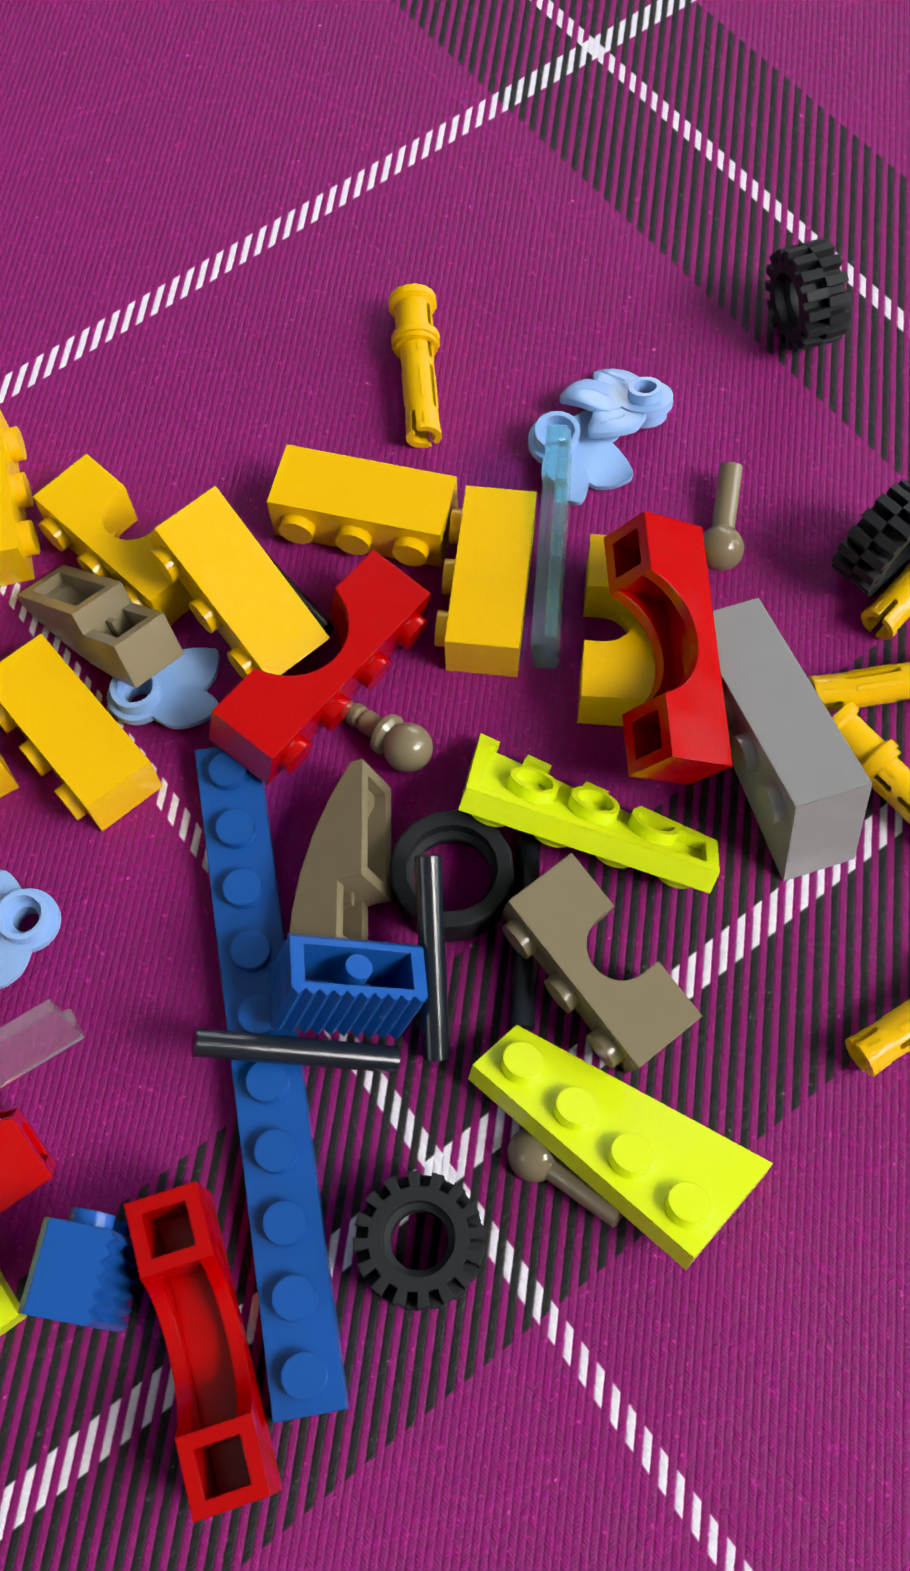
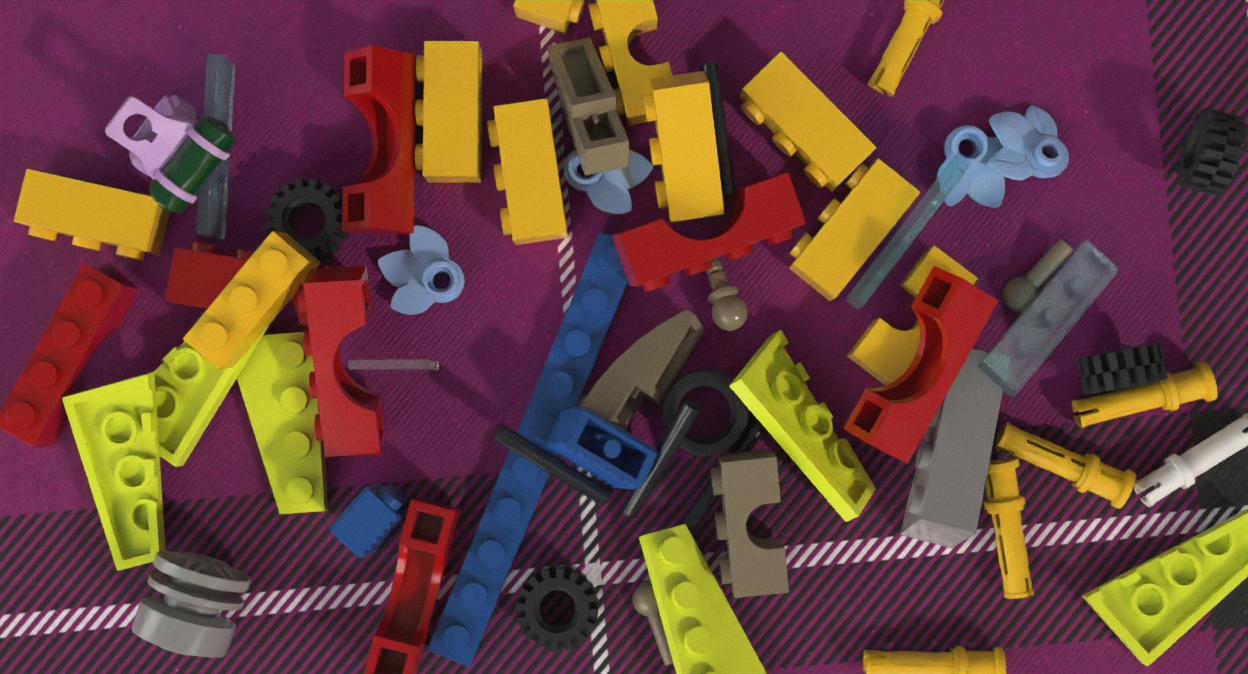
camera: 30 degrees right, 20 degrees up
(769, 542) = (1048, 318): none -> clear light blue tile

